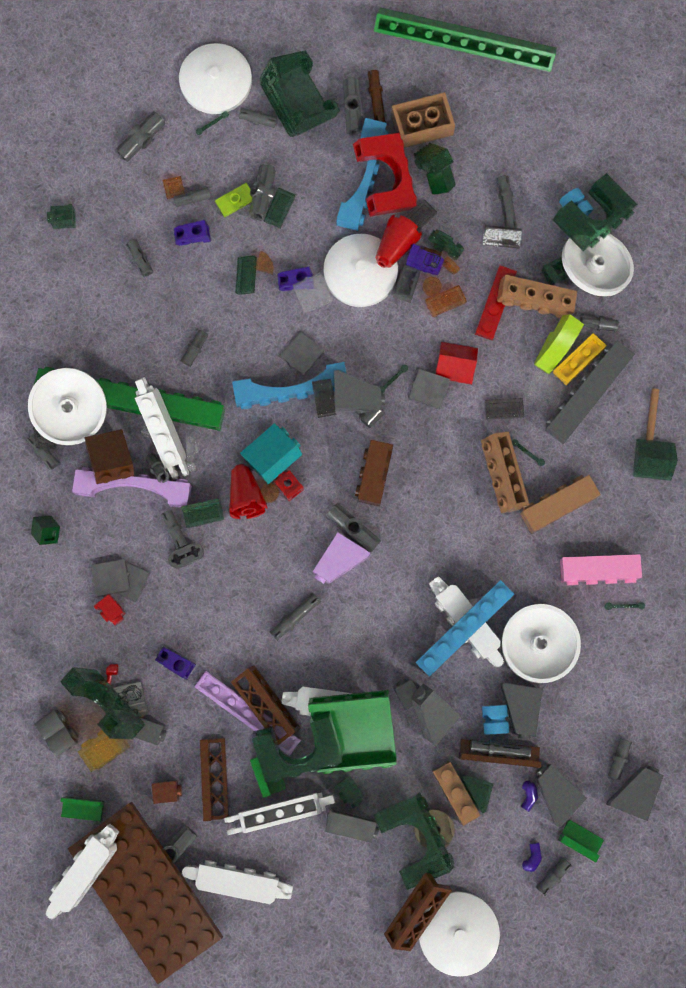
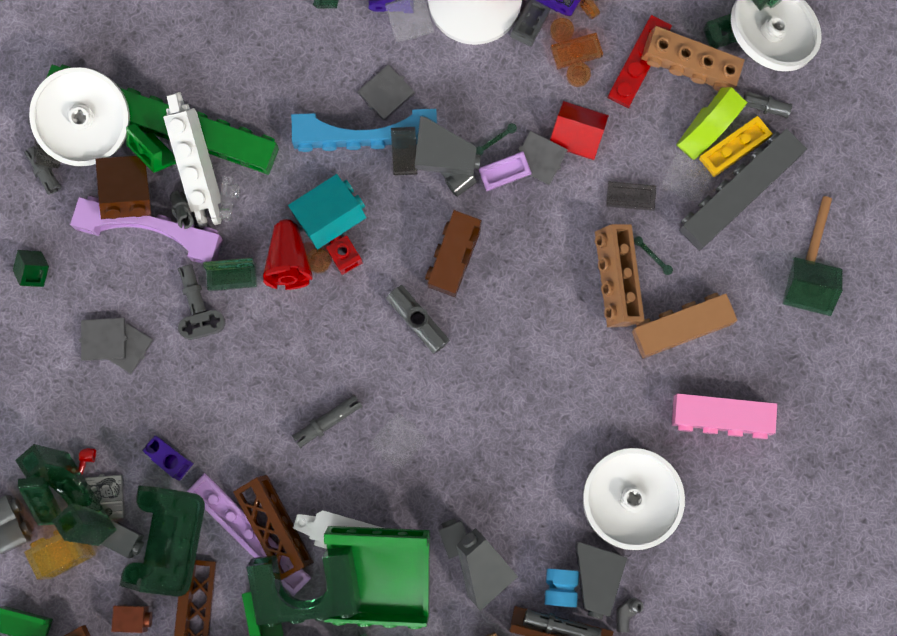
camera: 10 degrees right, 0 degrees up
(83, 710) = (39, 499): none -> clear green tile
(110, 610) = (96, 379): red brick -> none
(125, 424) = (149, 149): none -> green panel
(188, 728) = (170, 542): none -> clear green windscreen
(194, 348) = (251, 67): dark grey axle -> none
(339, 558) = (393, 356): lavender slope -> none
(404, 403) = (504, 171): none -> lavender tile
(450, 319) = (578, 74): none -> clear orange tile
(456, 606) = (545, 457): white hinge -> none
(464, 628) = (539, 465): dark azure arch -> none
(547, 730) = (626, 611): none -> flat silver arm
(608, 606) = (727, 464): clear green hinge -> none

